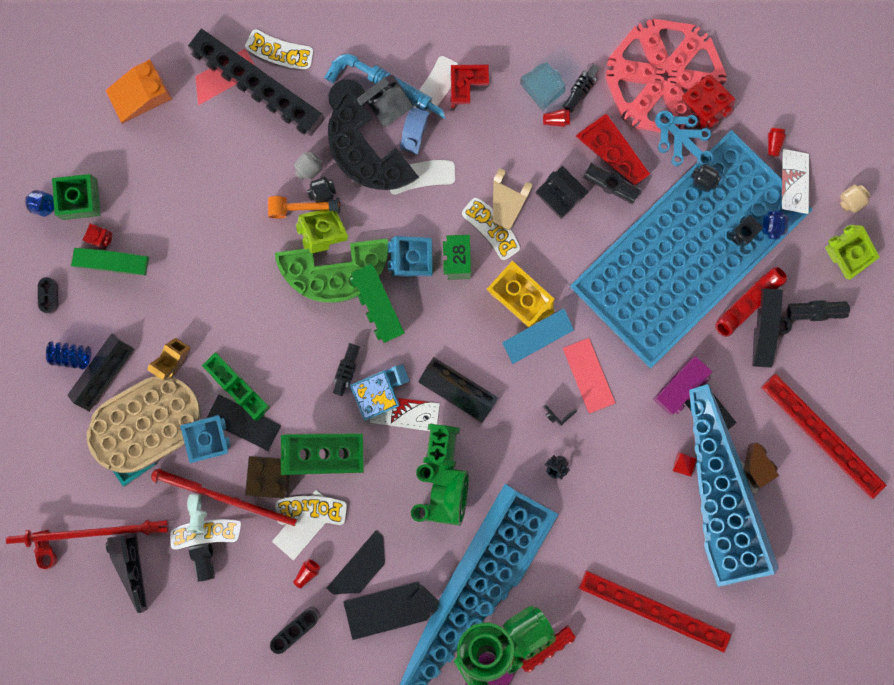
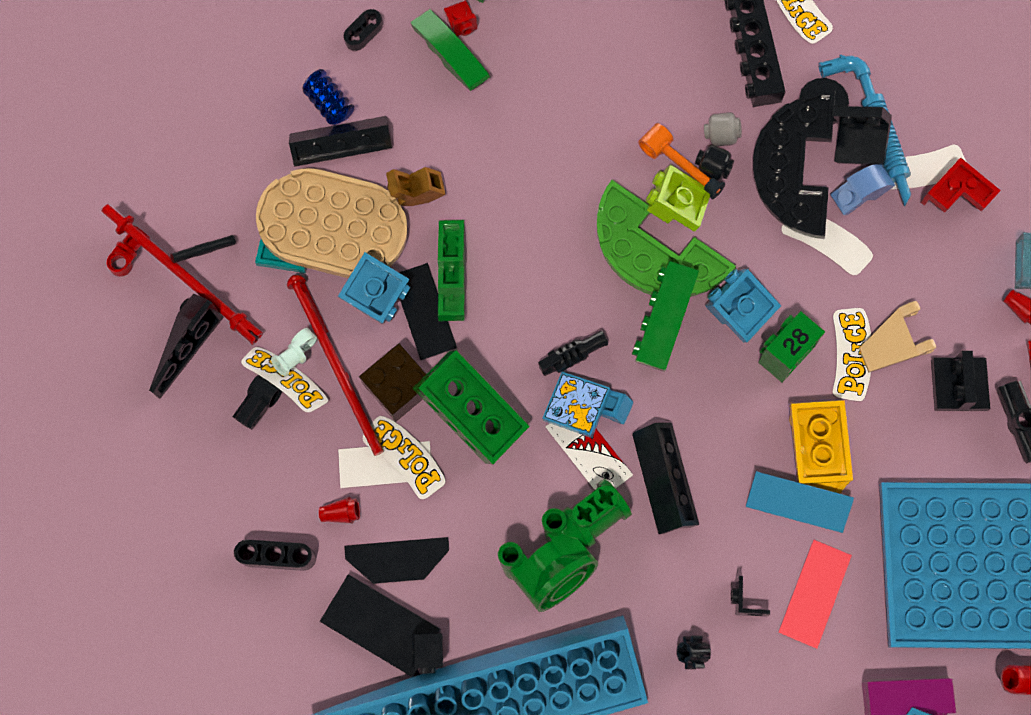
camera: 45 degrees right, 10 degrees down
(86, 508) = (202, 249): none -> black piece

